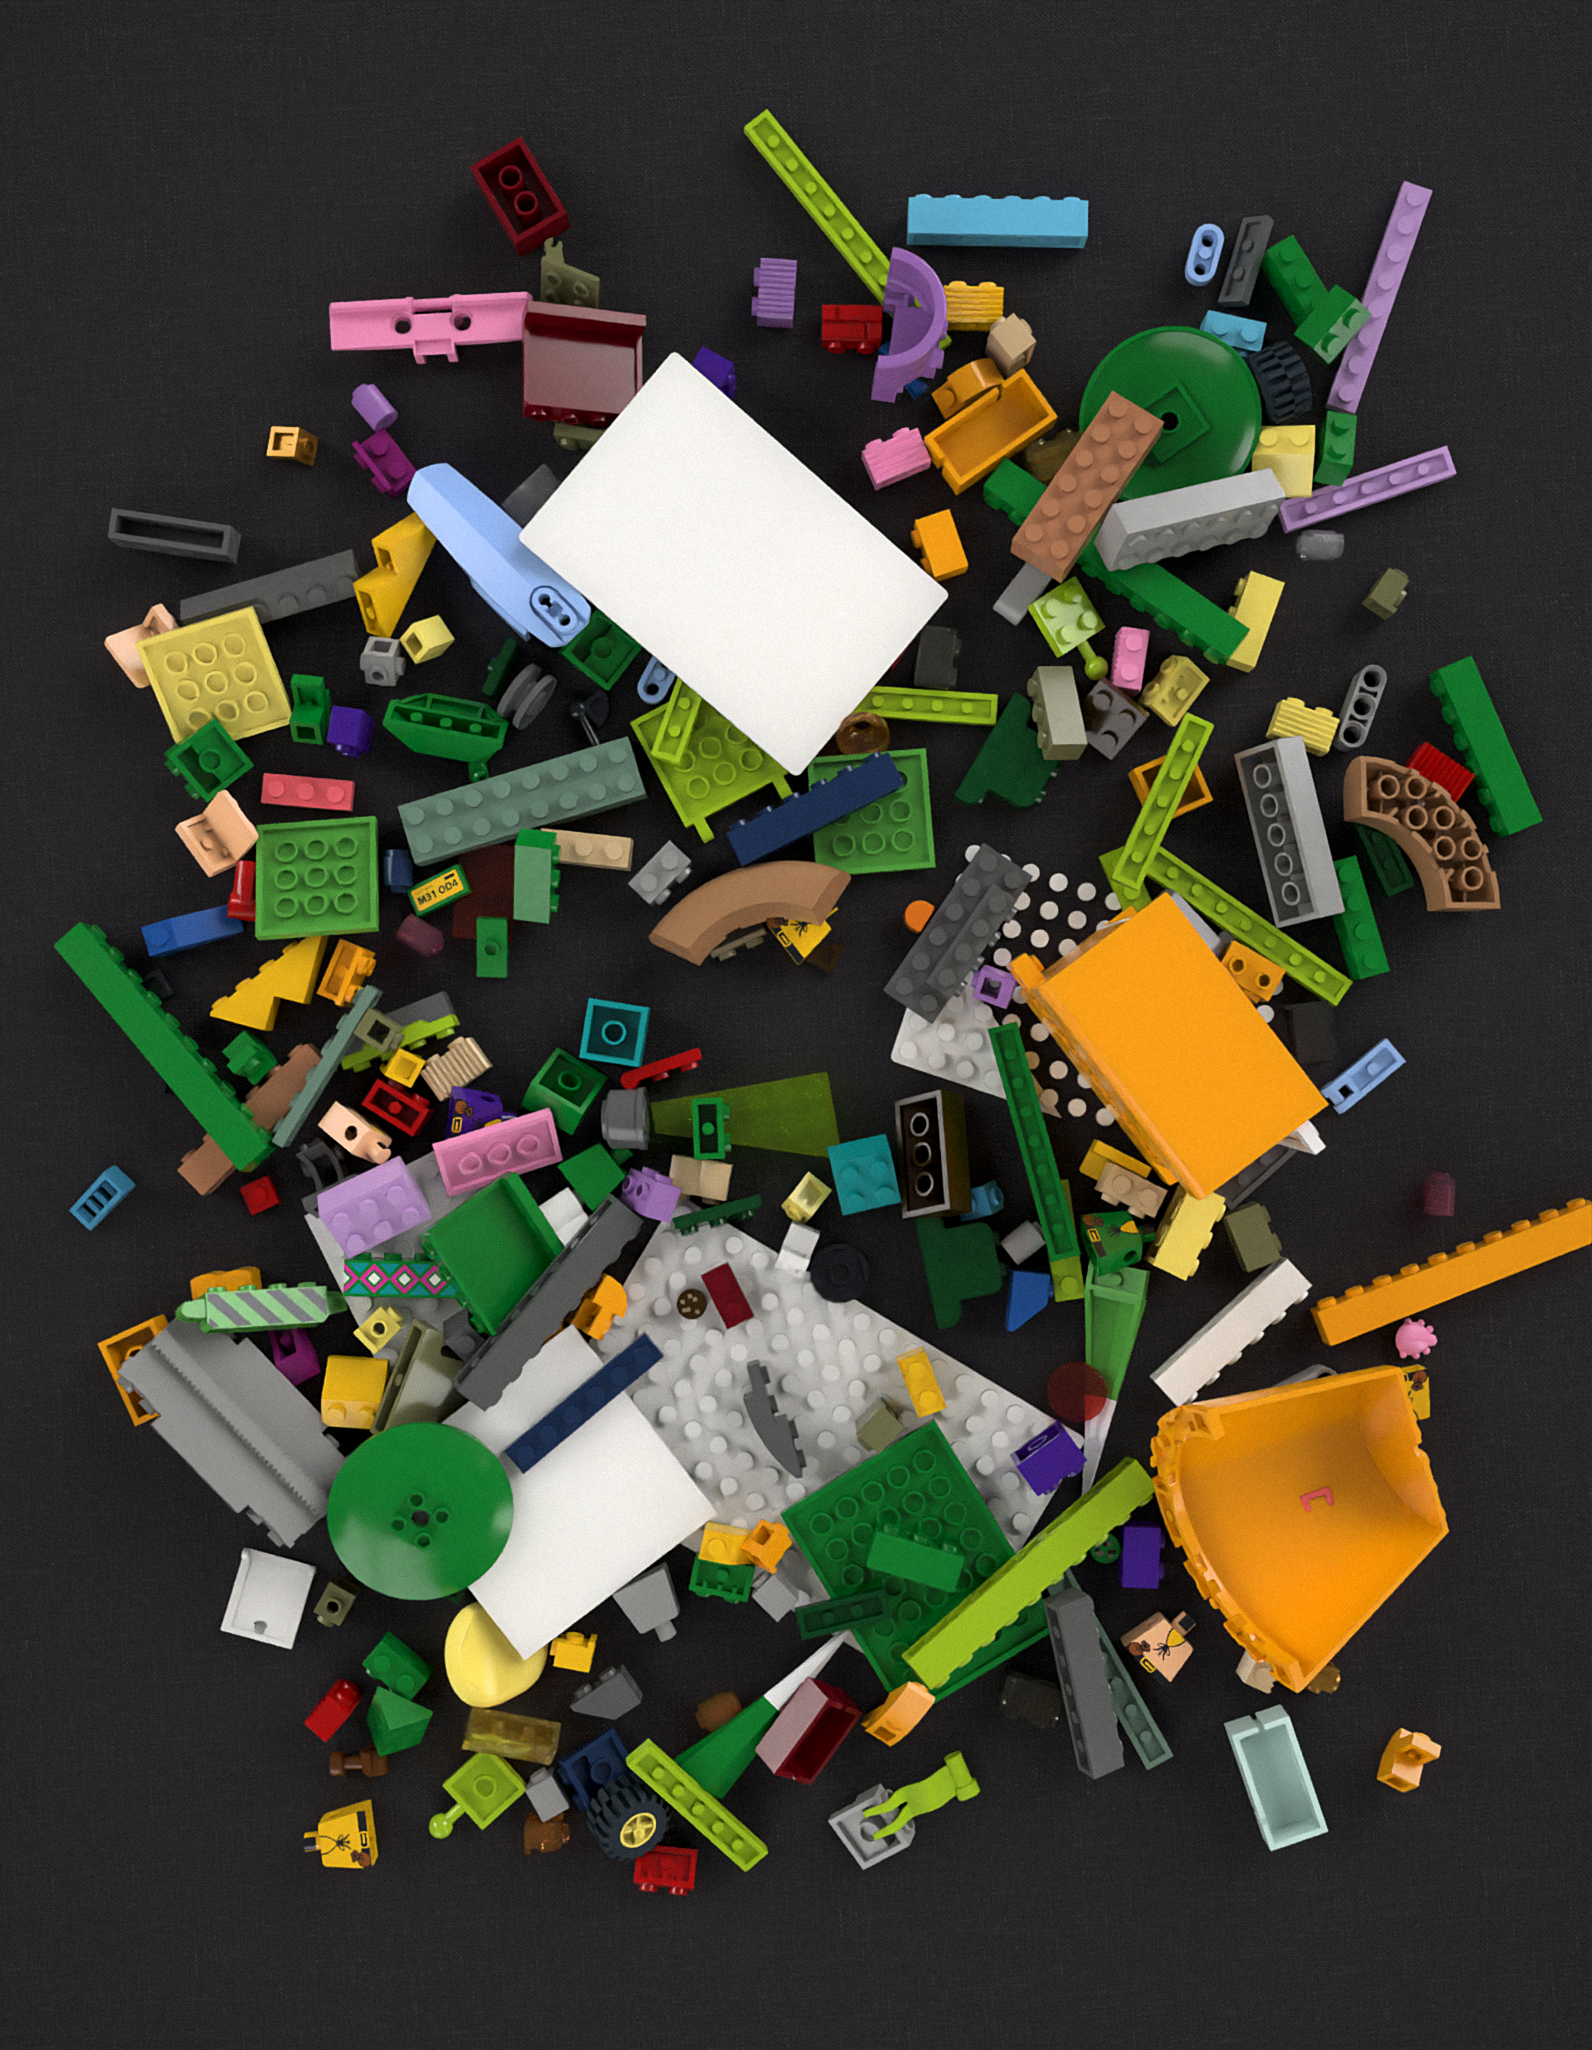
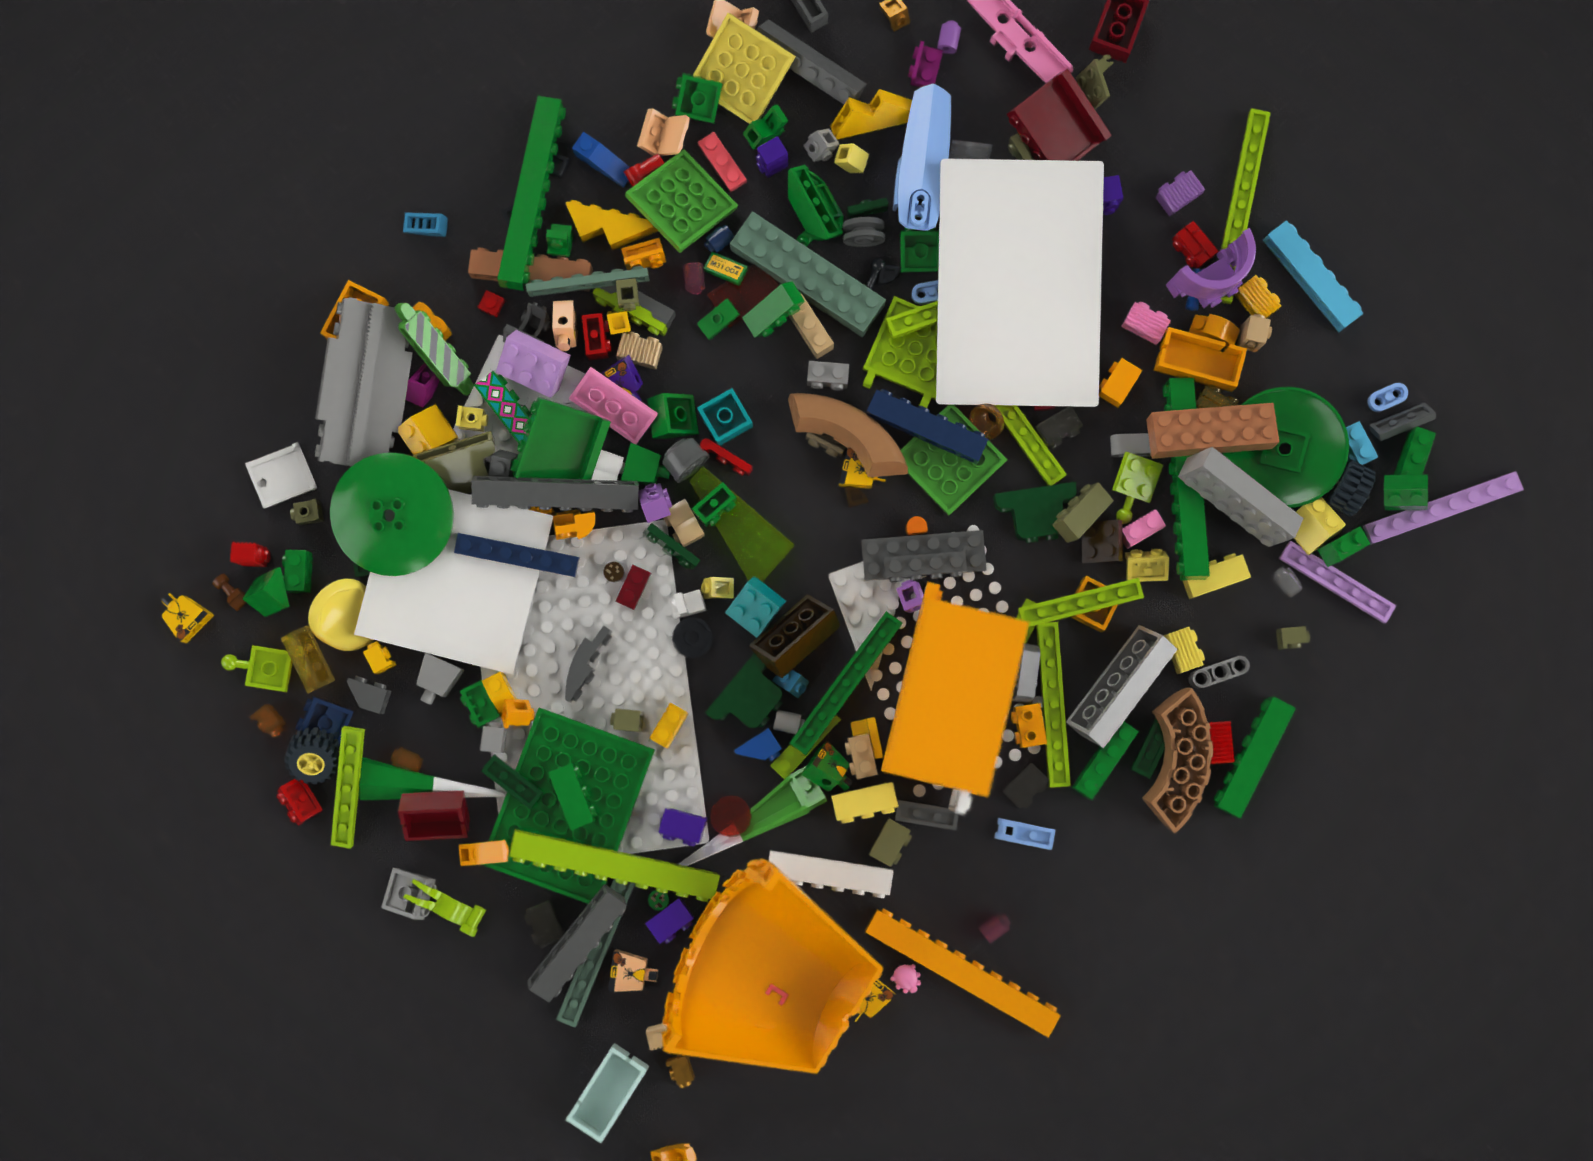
camera: 55 degrees right, 5 degrees down
(548, 1793) = (291, 704): light grey brick -> none

